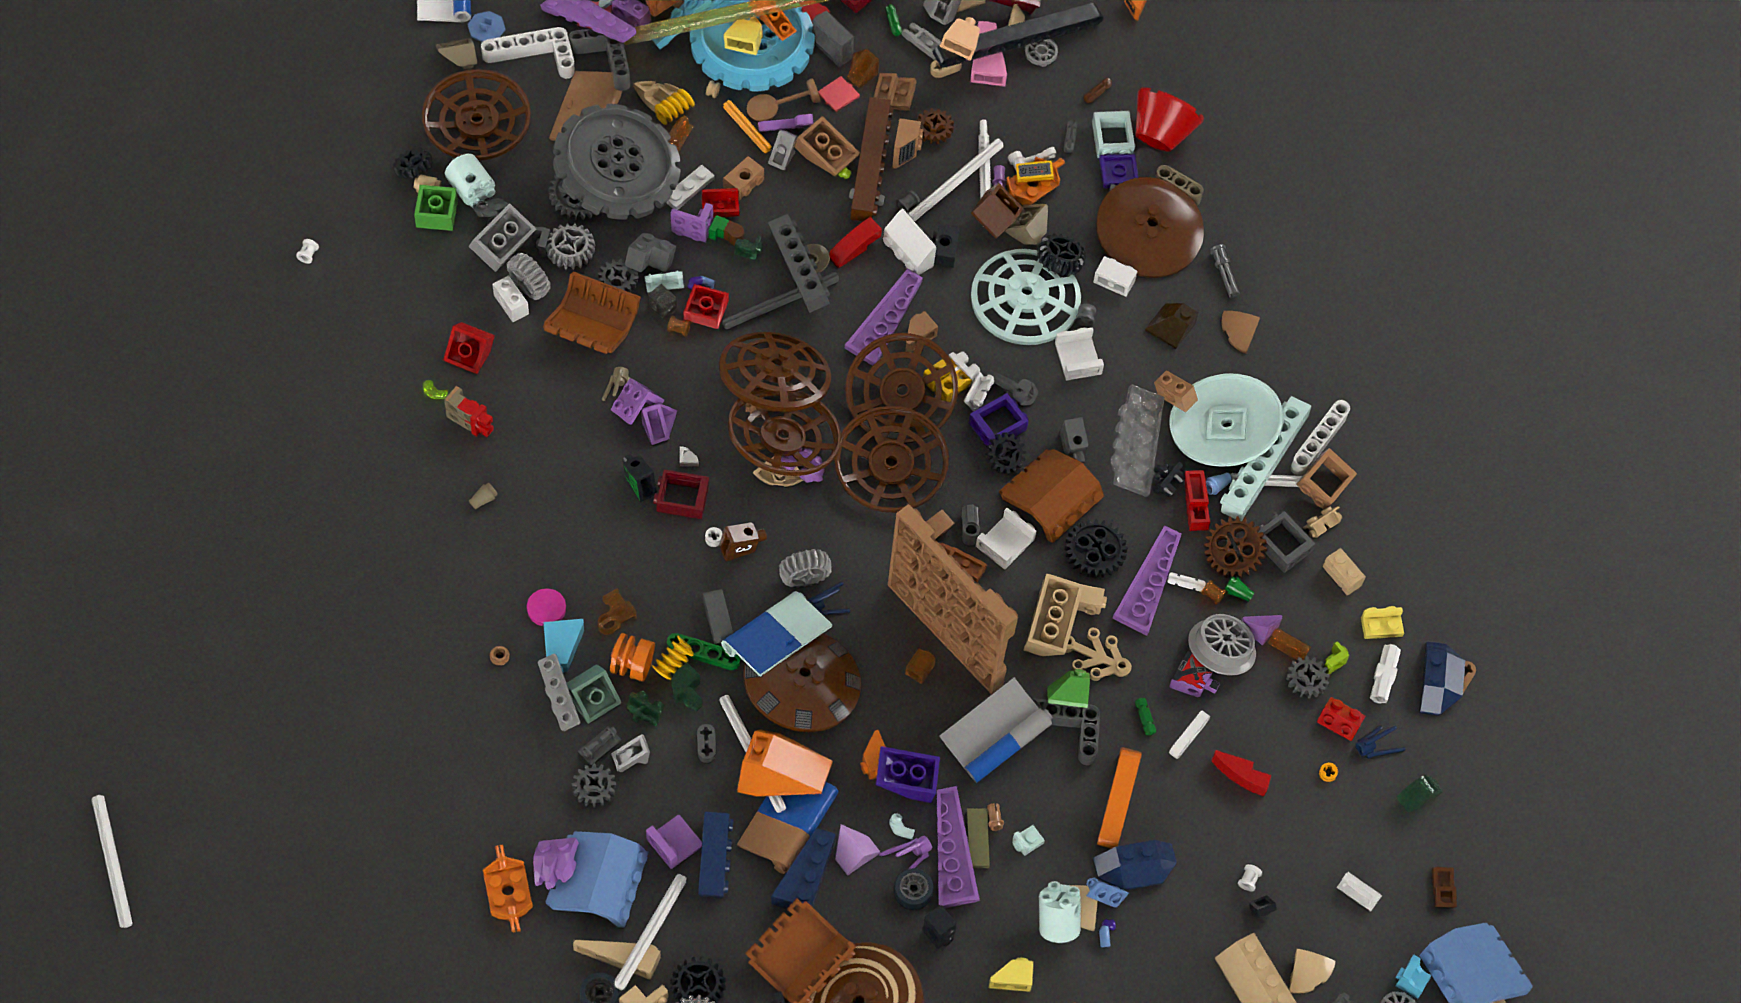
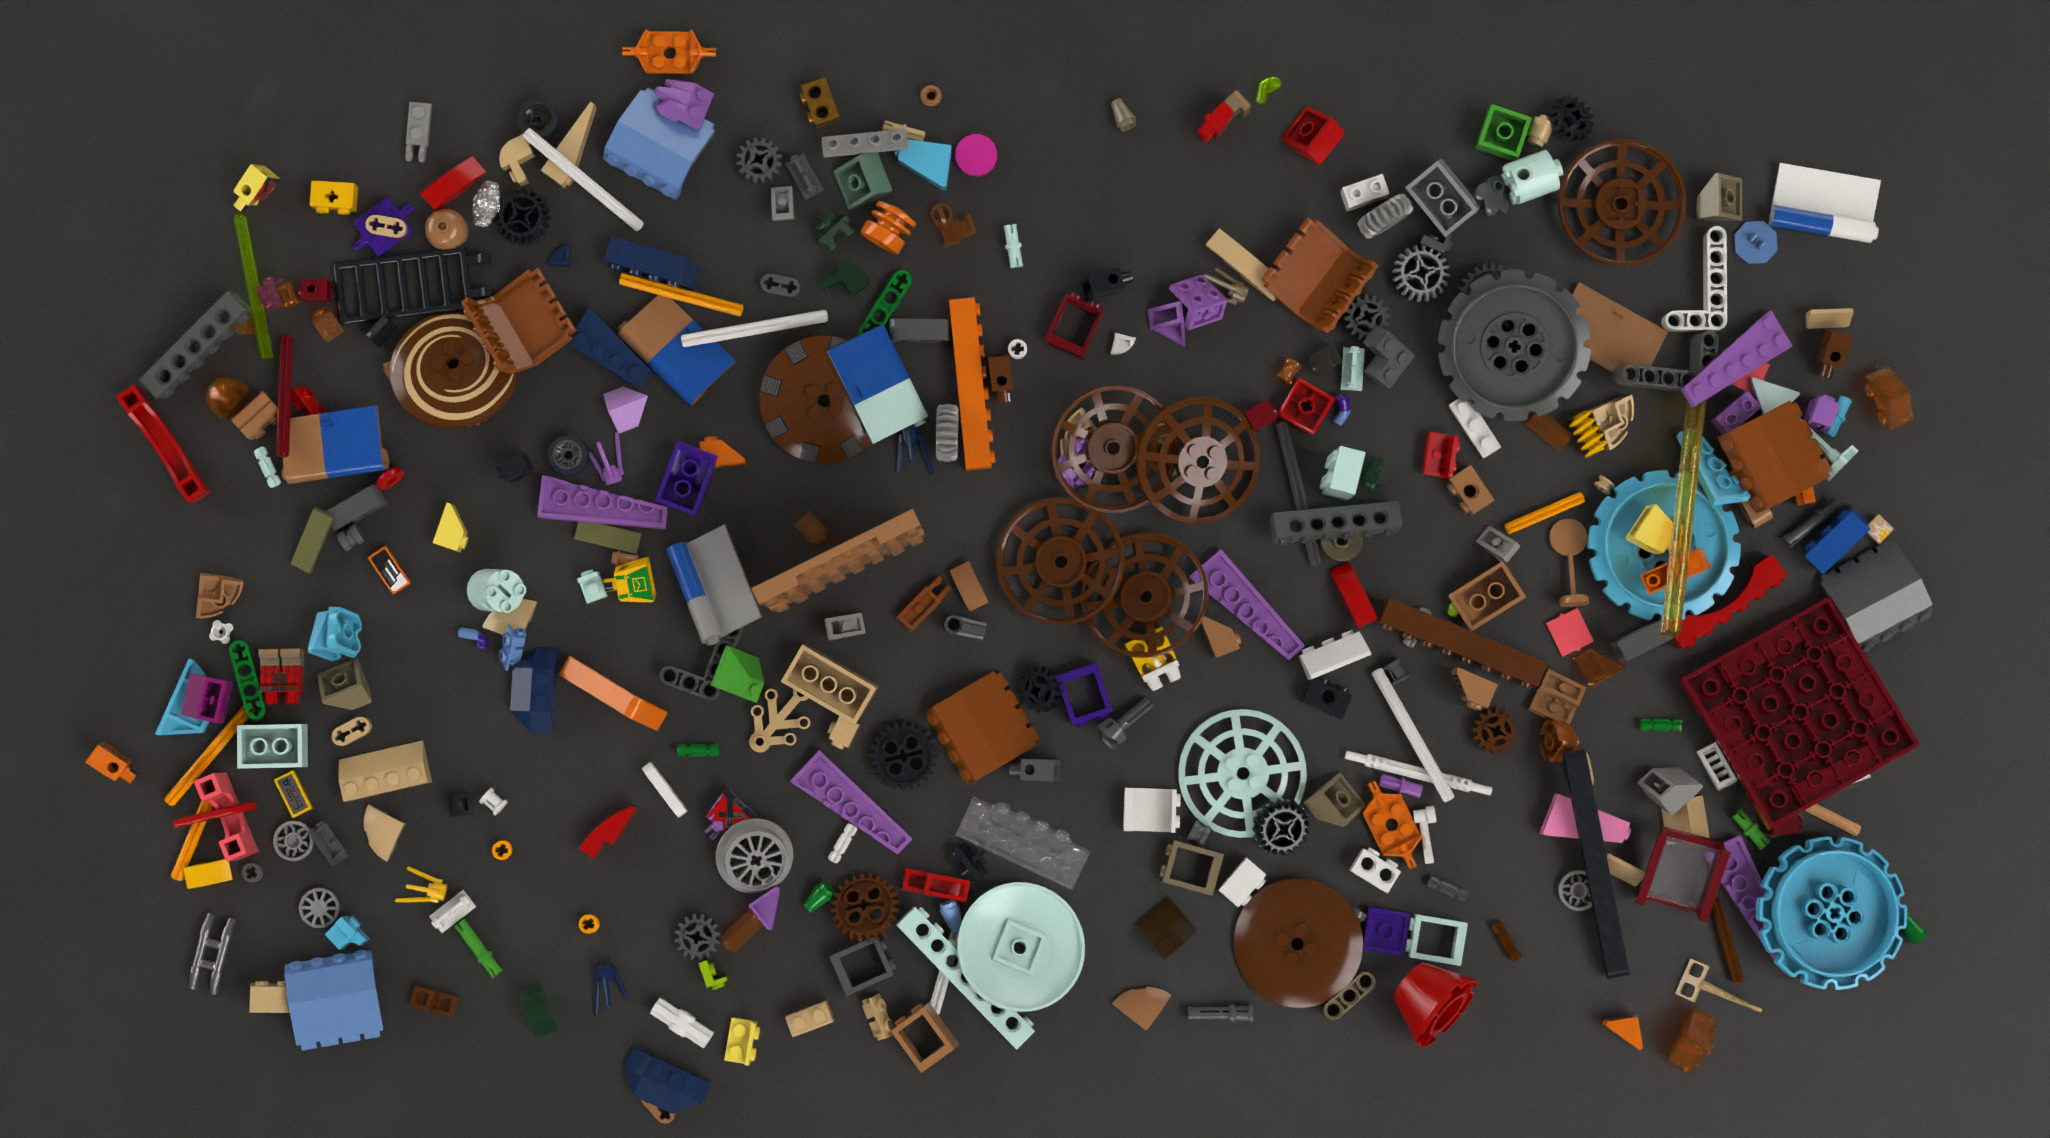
camera: 110 degrees right, 25 degrees up
(524, 741) = (824, 101): none -> pearl gold brick
(537, 679) = (912, 134): none -> tan axle
(592, 377) = (1240, 260): none -> tan slope
(622, 558) = (1013, 246): none -> light aqua pin
(673, 841) = (679, 226): medium lavender bracket -> none
(674, 658) = (877, 270): yellow piece -> none
(692, 226) = (1416, 429): medium lavender bracket -> none
(722, 335) = (1261, 415): none -> dark red brick
(726, 230) = (1403, 456): leg -> none
(727, 942) = (561, 257): none -> dark blue tile
(737, 834) = (681, 294): none -> light orange axle
(748, 566) = (970, 384): none -> orange brick
(758, 256) = (1343, 473): none -> light aqua brick
(781, 767) = (727, 353): orange wedge -> none
(799, 121) = (1531, 571): medium lavender beam -> none
(898, 827) = (638, 458): light aqua arm -> none
(921, 39) = (1618, 755): light grey hinge -> none
(929, 81) = (1558, 739): none -> dark orange cylinder
(962, 38) = (1588, 786): light nougat torso -> none
(978, 390) = (1121, 677): white hinge -> none
(997, 210) = (1354, 767): reddish brown slope -> none
(1006, 539) = (939, 662): white panel -> none
(1013, 801) = (633, 581): none -> torso
(1034, 171) = (1400, 828): tile -> none
(1073, 182) = (1372, 874): none -> white brick
(1115, 298) = (1213, 871): none -> dark tan window
(1176, 391) = (1071, 902): medium nougat brick -> none
(1213, 592) = (821, 868): clear orange bush -> none
(1285, 865) = (505, 855): none -> light orange bush
(1316, 444) = (988, 1056): white beam -> none
(1341, 718) = (644, 958): red bracket -> none
(1348, 910) = (436, 890): none -> yellow plant
(1389, 853) = (484, 956): none -> bright green pin

